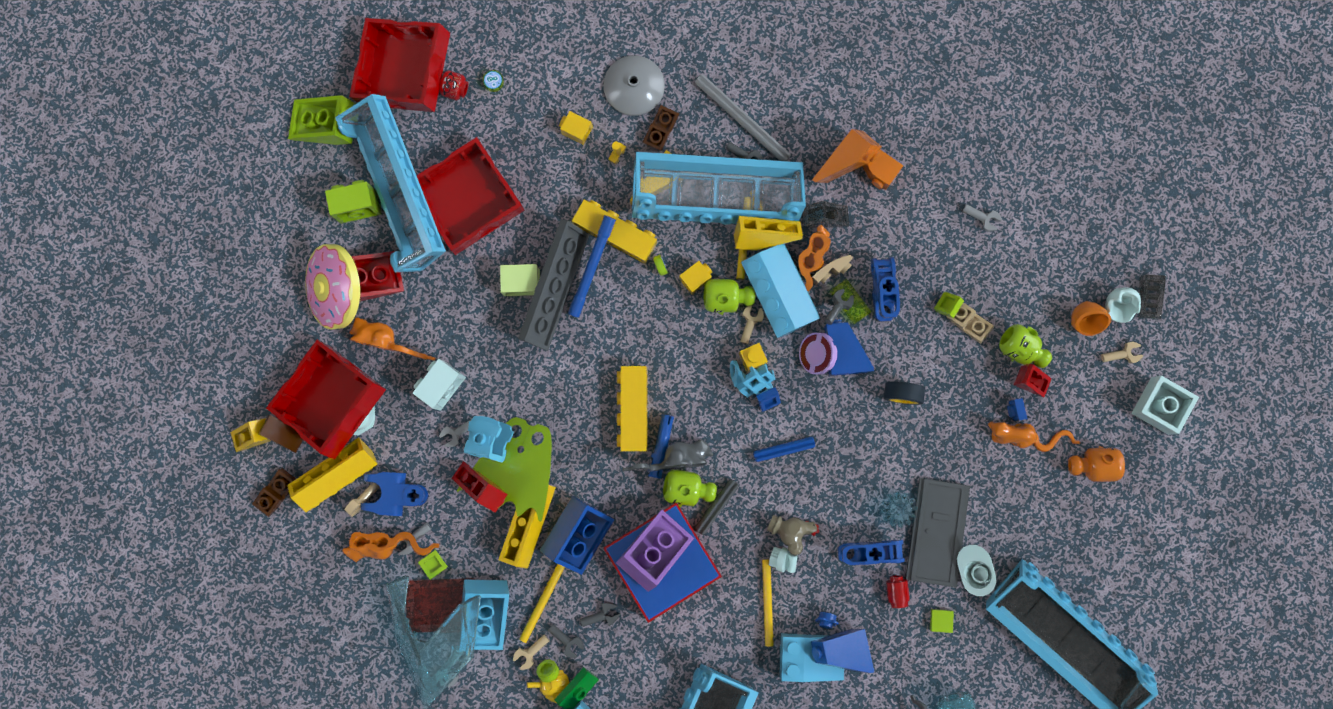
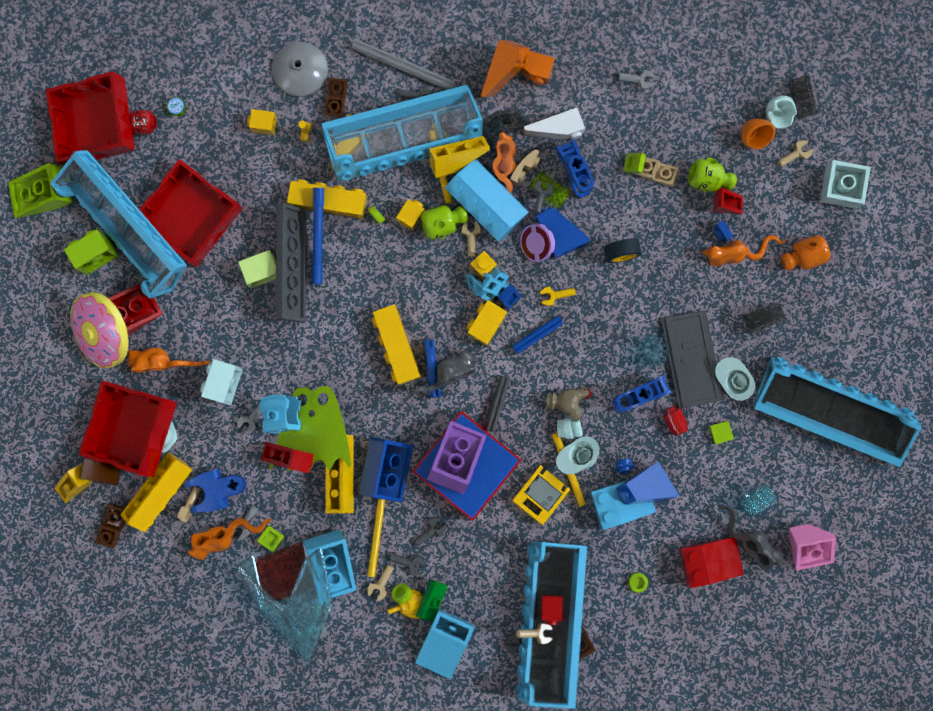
camera: 20 degrees left, 0 degrees up
(687, 488) = (465, 396): lime piece -> none
(732, 616) = (544, 492): none -> container
(736, 418) = (486, 323): none -> yellow brick
(782, 592) = (578, 455): none -> light aqua piece
(817, 414) = (556, 295): none -> yellow bar
(885, 239) = (560, 126): none -> white slope
(1030, 516) = (765, 317): none -> clear smoke slope

